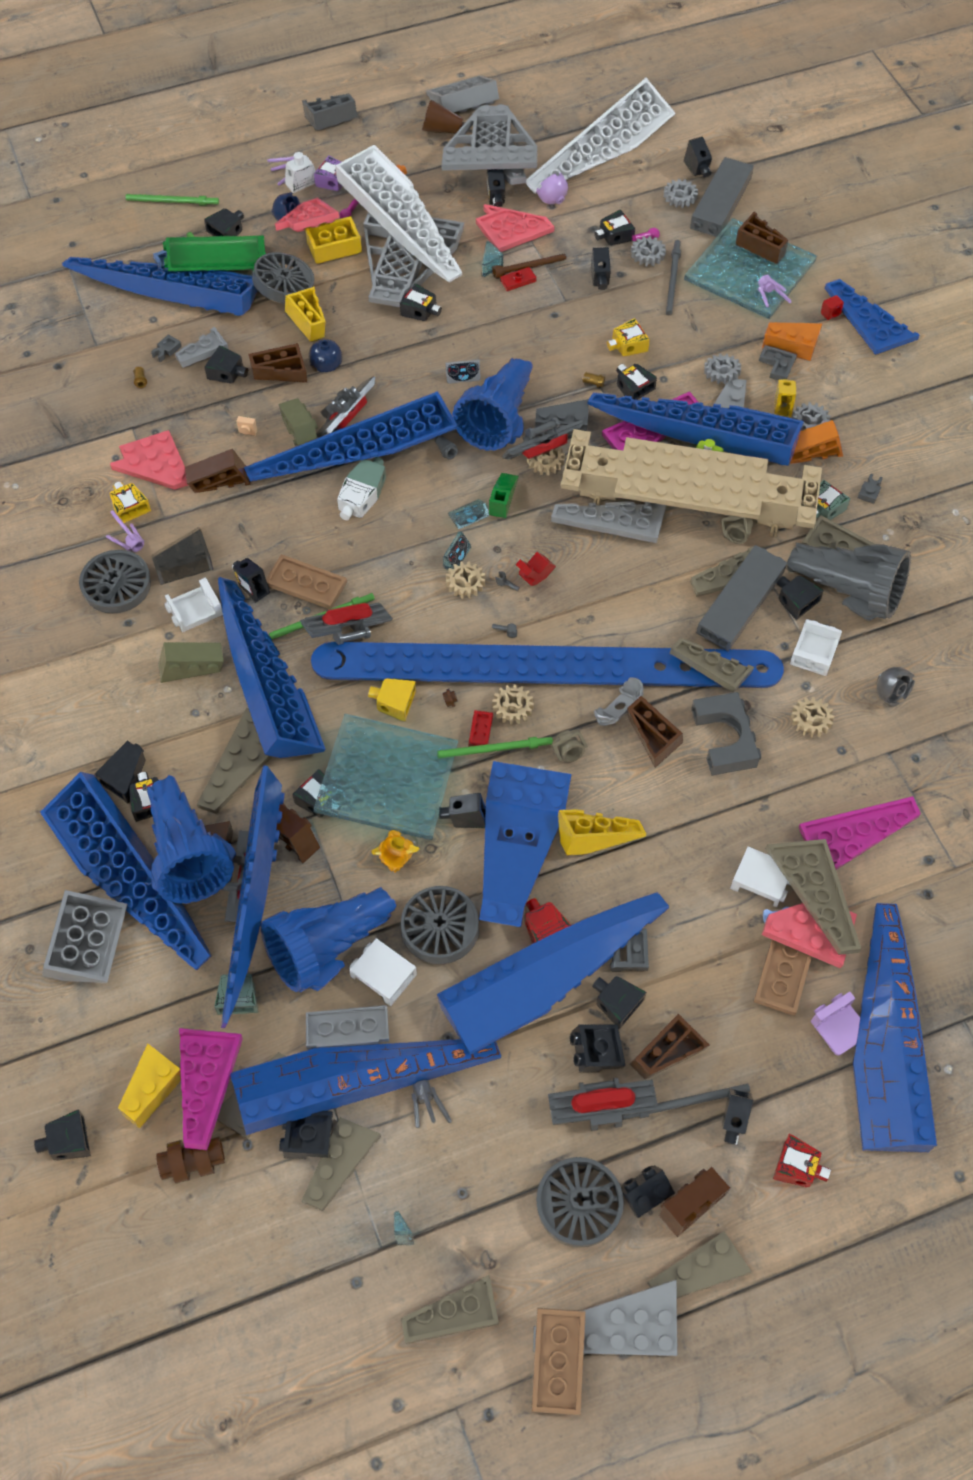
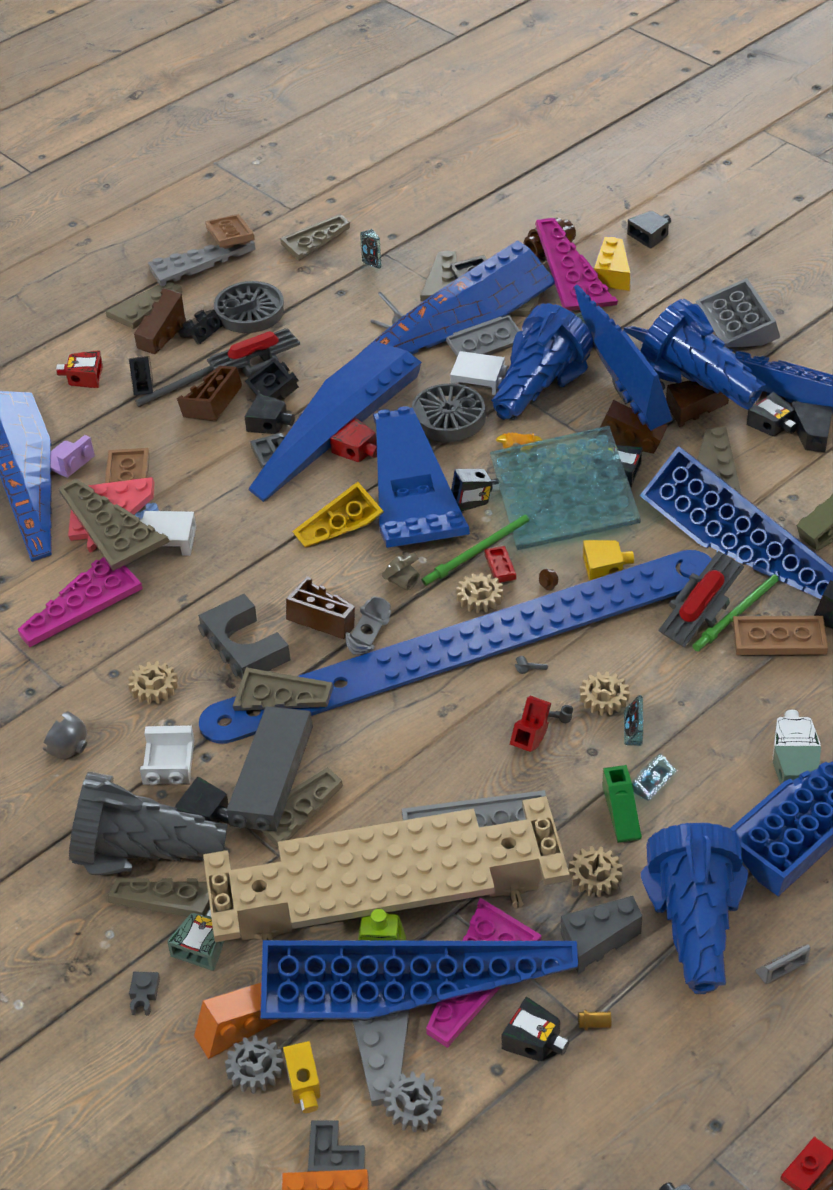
camera: 160 degrees right, 15 degrees down
(552, 436) = (606, 862): dark grey piece -> none
(629, 339) = (576, 1105): yellow torso -> none

